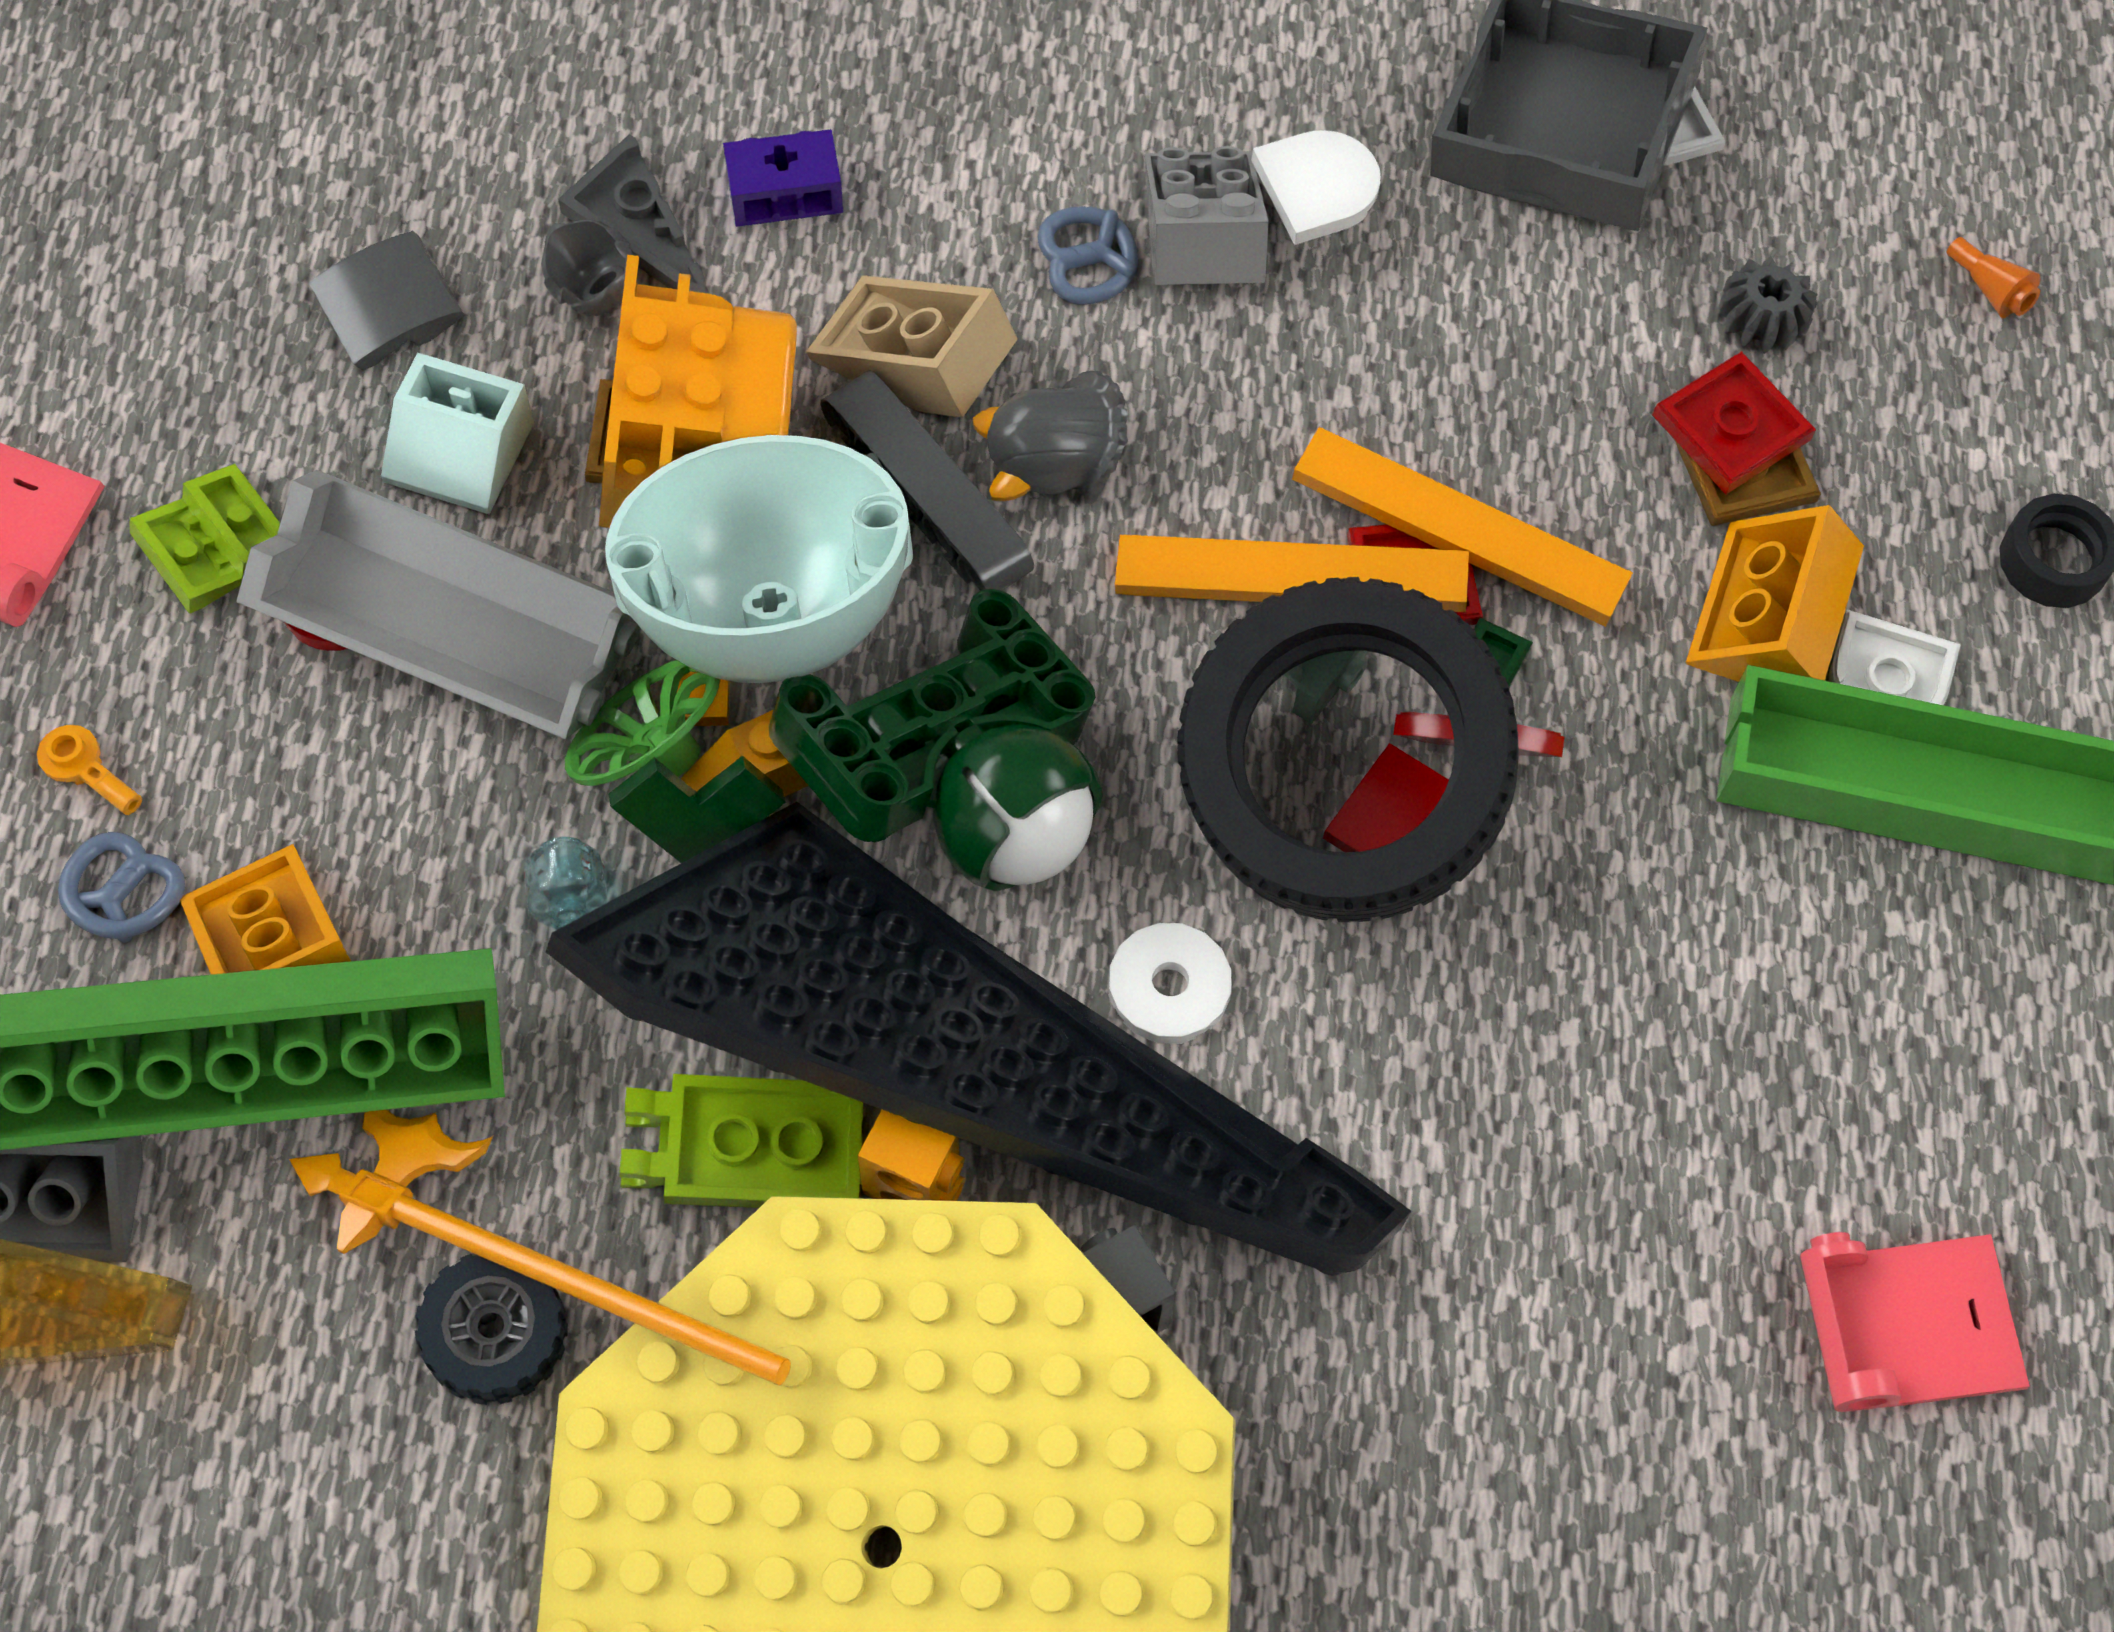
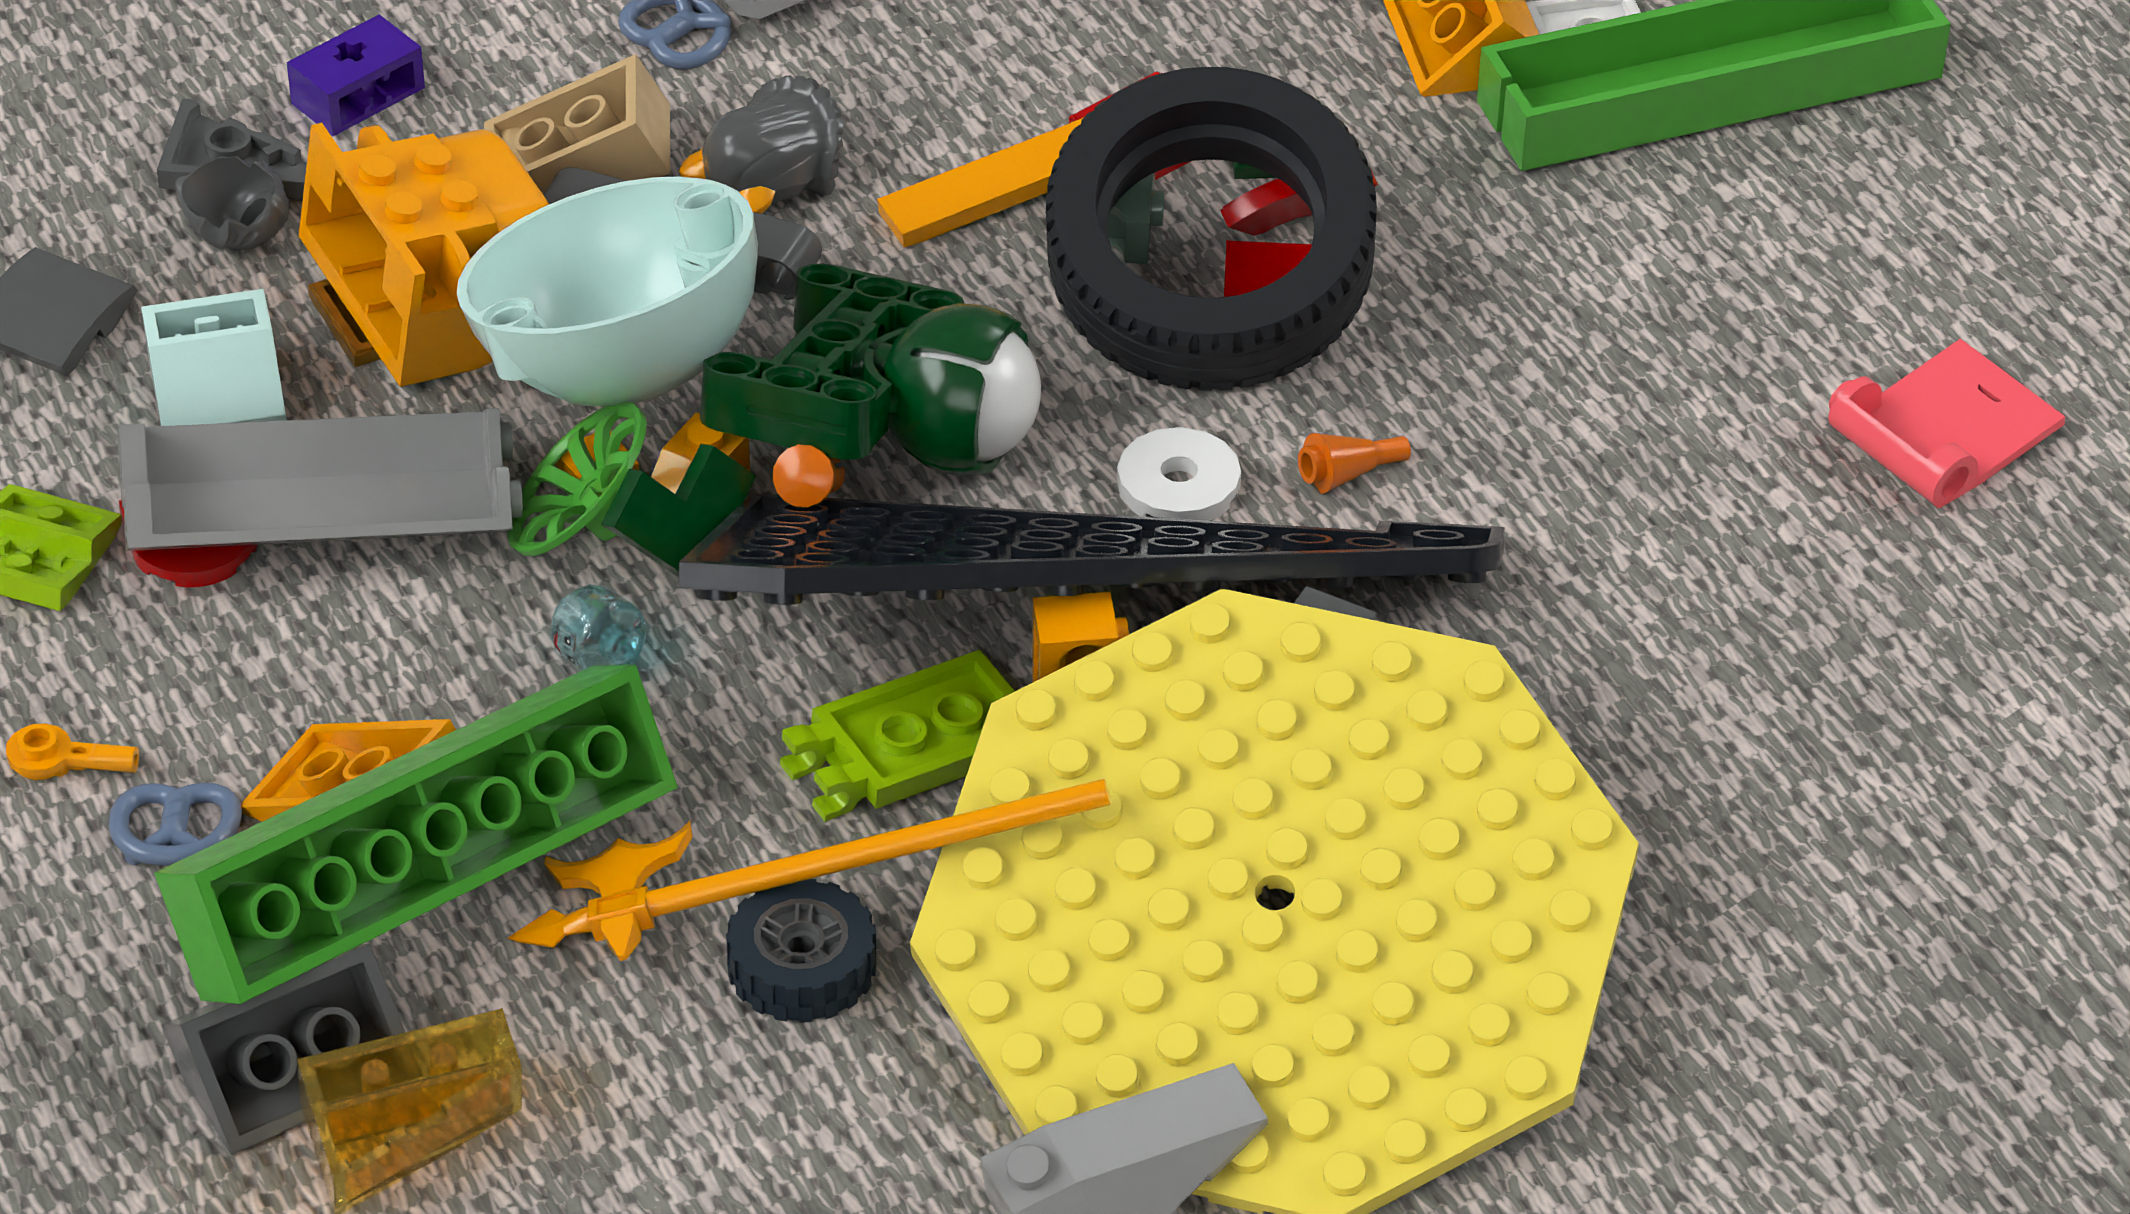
camera: 30 degrees left, 20 degrees down
(818, 830) = (806, 475): none -> orange pin
(1319, 1048) = (1339, 459): none -> orange cone
(1462, 523) = (1104, 70): light orange tile -> none

